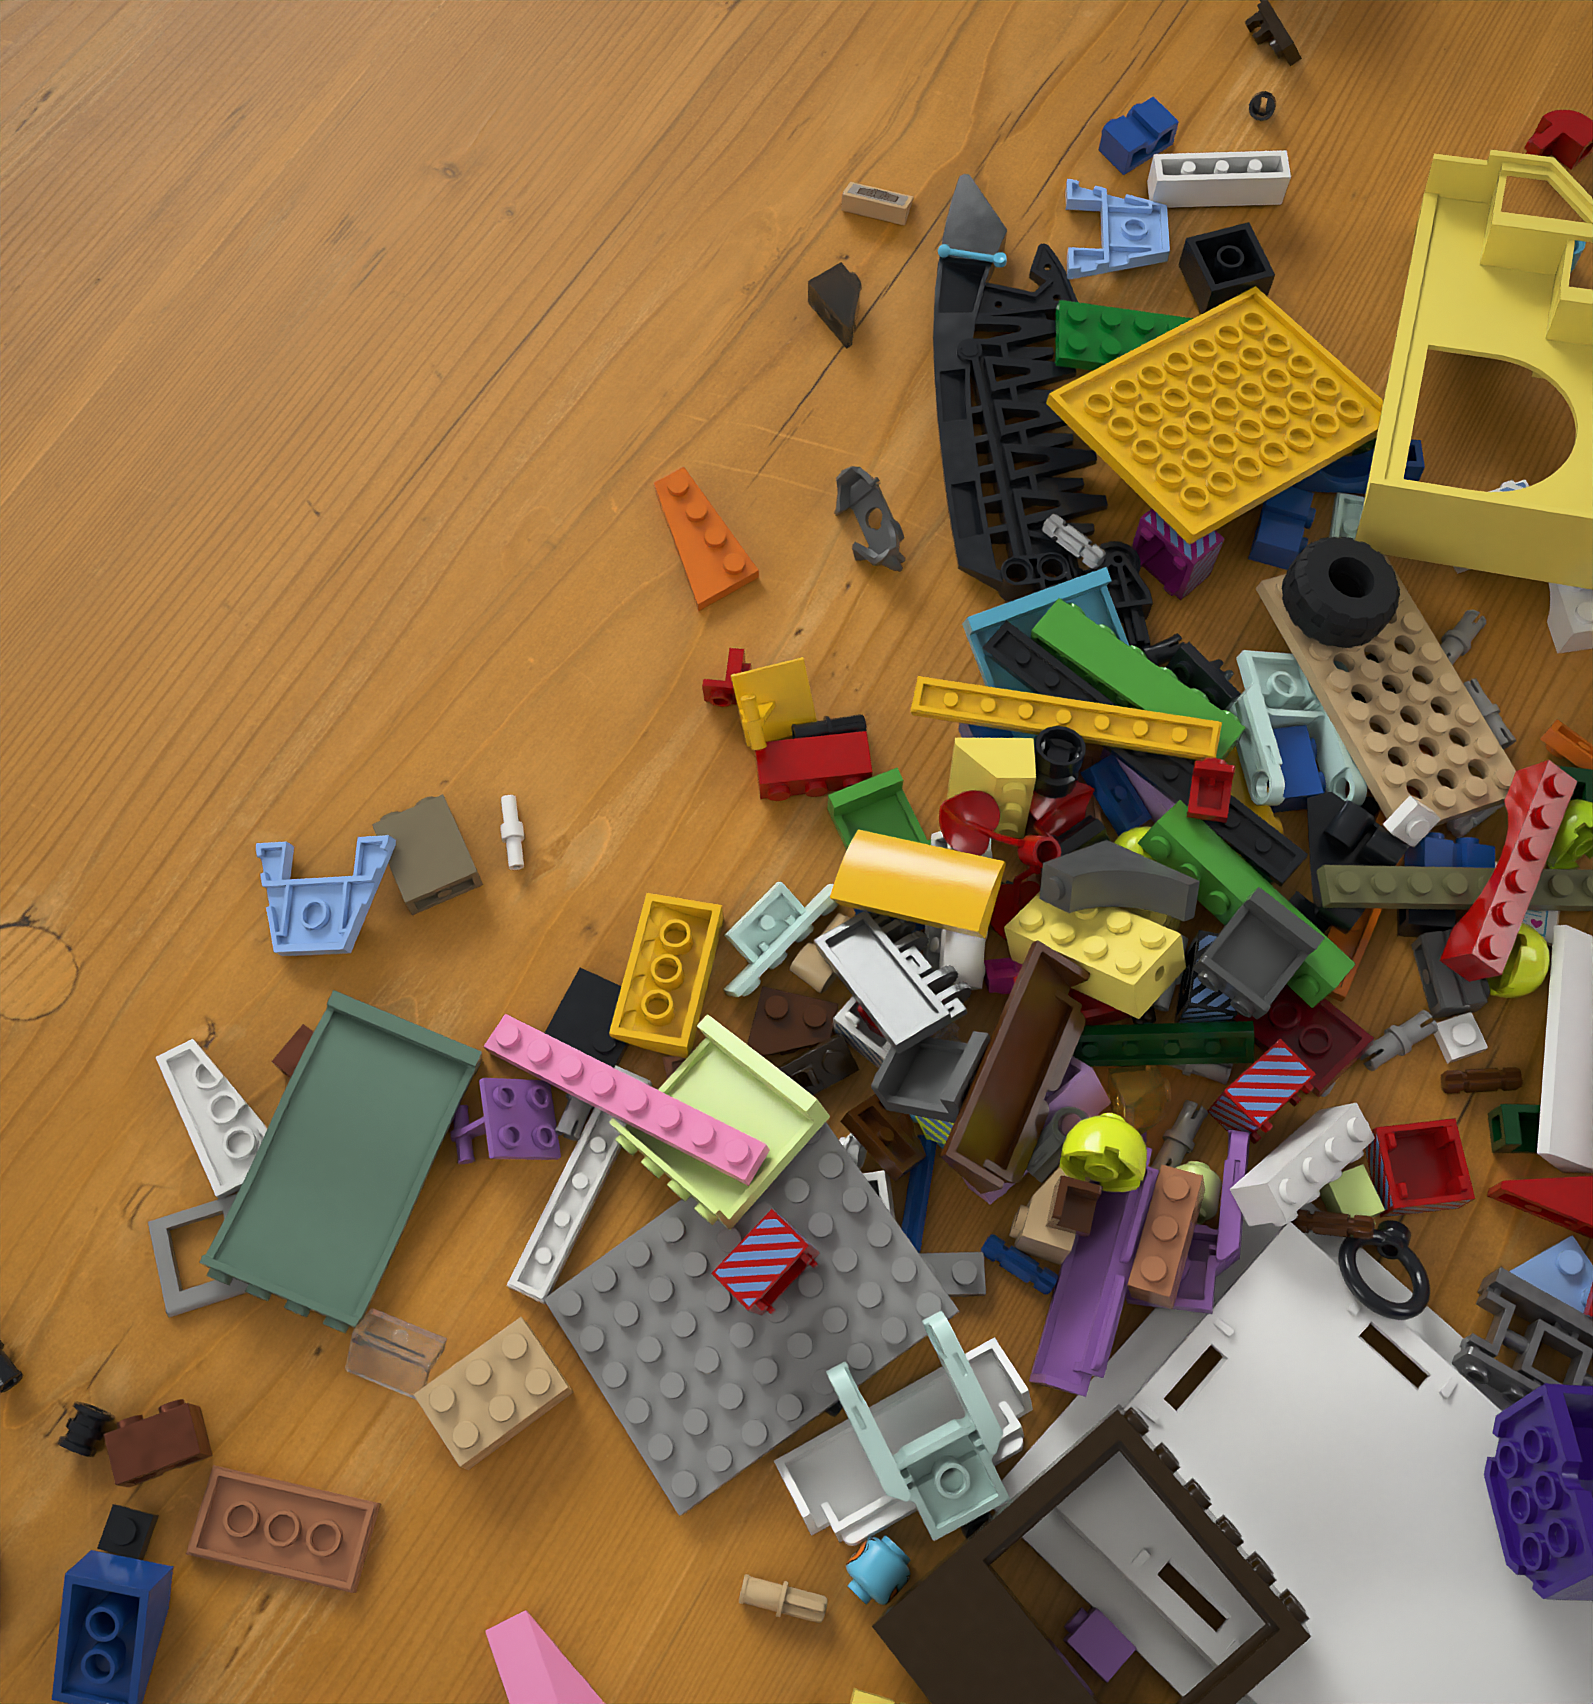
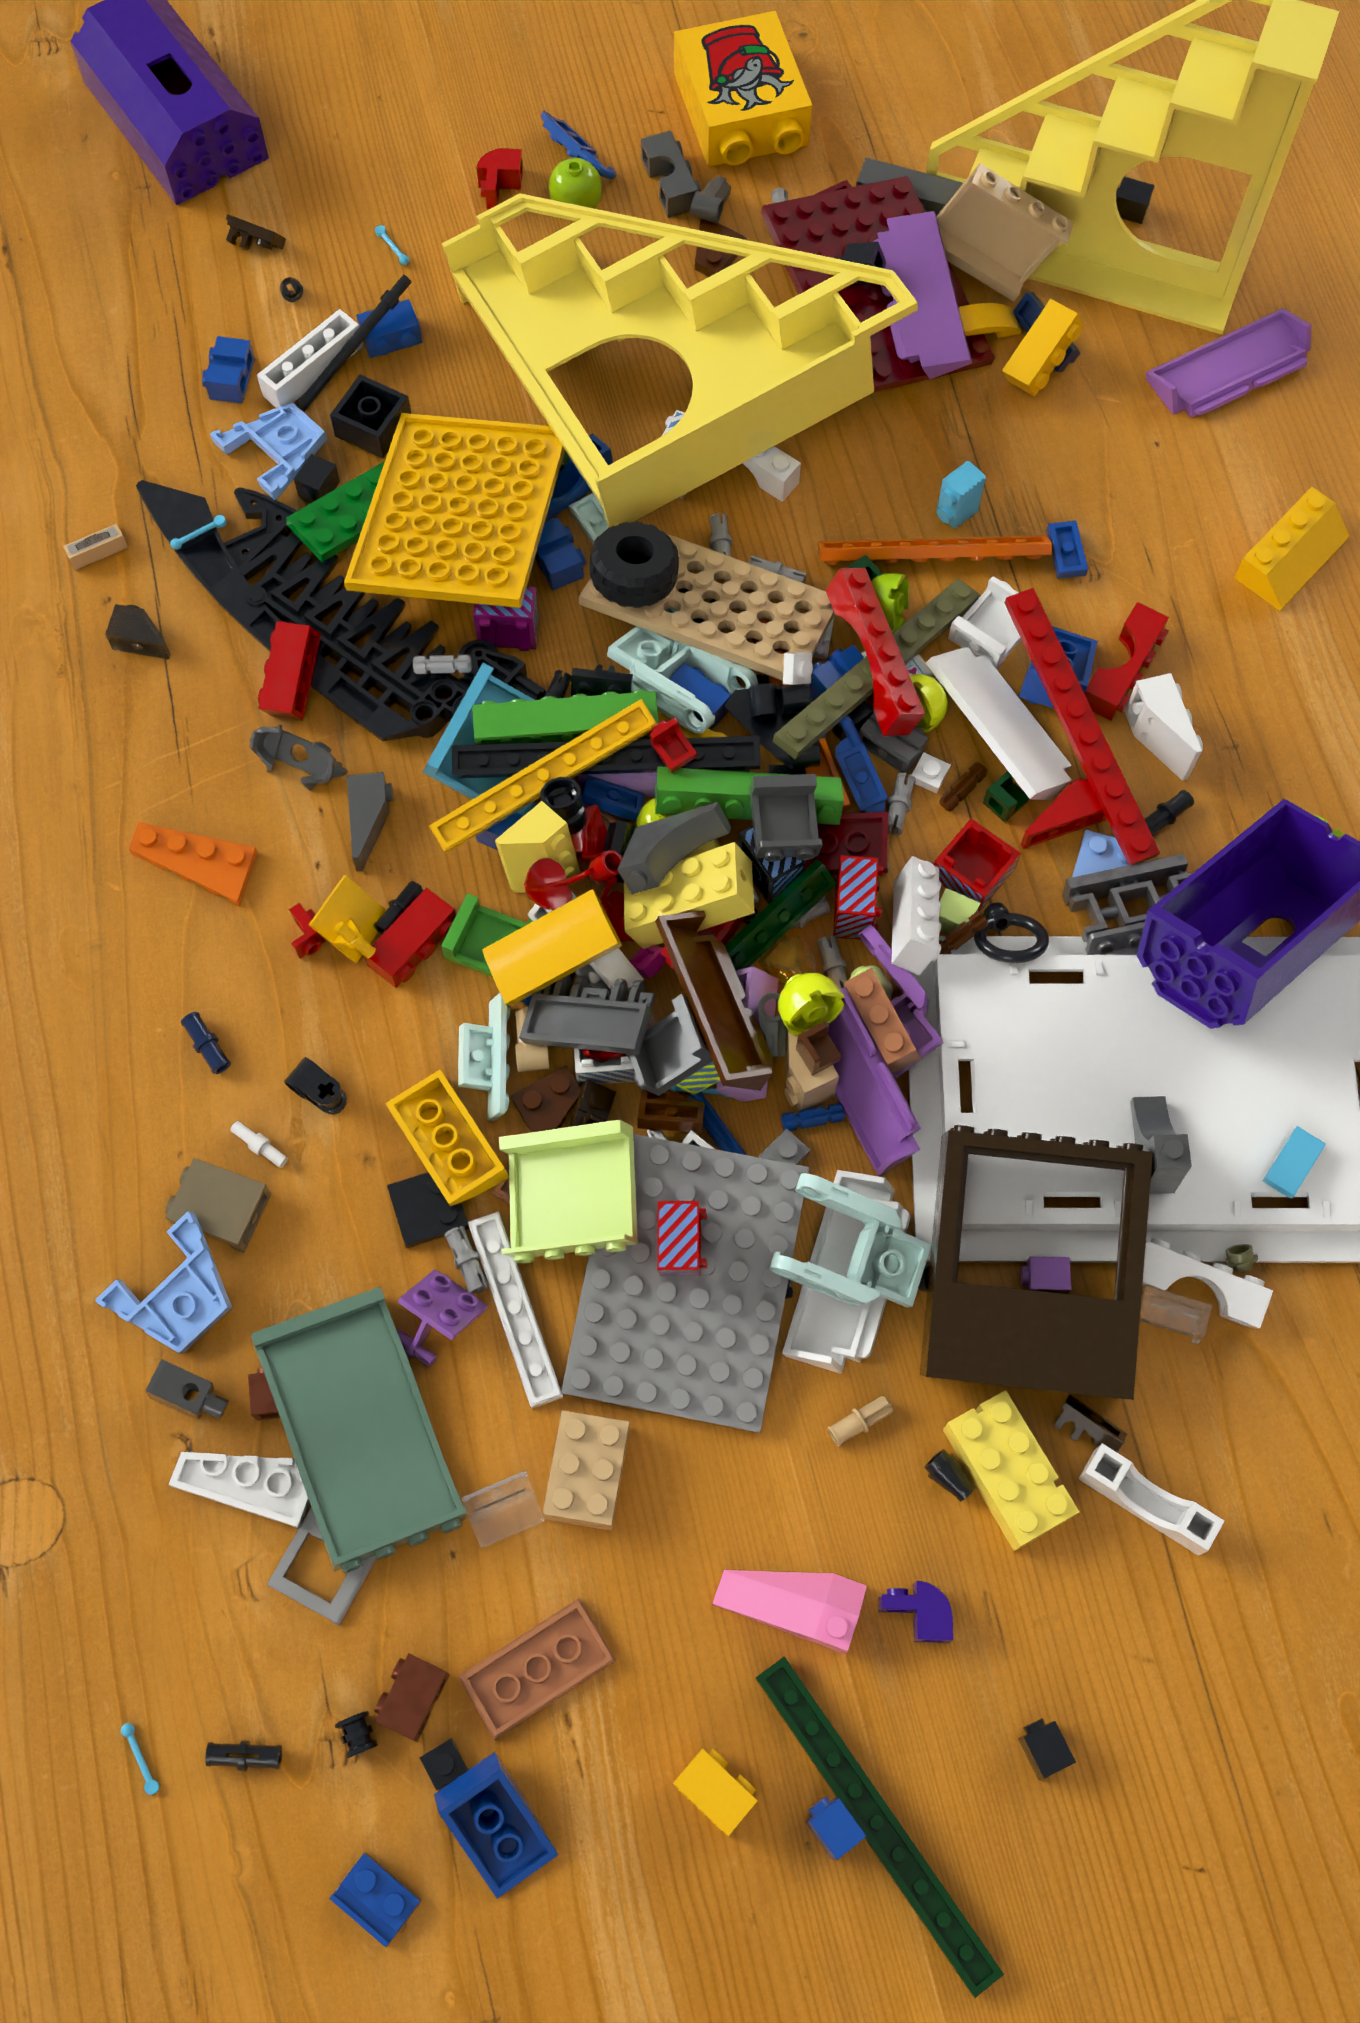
camera: 45 degrees left, 0 degrees up
(235, 975) = (172, 1384): none -> dark grey torso
(554, 704) = (205, 1042): none -> dark blue pin
(605, 823) = (314, 1084): none -> black piece
(628, 1099) = (496, 1231): bright pink plate -> none
(878, 1570) = (896, 1353): medium azure head -> none
(881, 622) = (368, 812): none -> dark grey slope
(933, 437) = (289, 670): none -> red brick
(1123, 288) = (316, 479): none -> black brick
(1320, 204) = (394, 331): none -> blue brick
(1337, 1629) = (1170, 1151): none -> dark grey arch
(1338, 176) = (388, 301): none -> black bar
(1385, 973) = (859, 770): none -> blue plate
(1396, 114) = (381, 232): none -> medium azure hinge

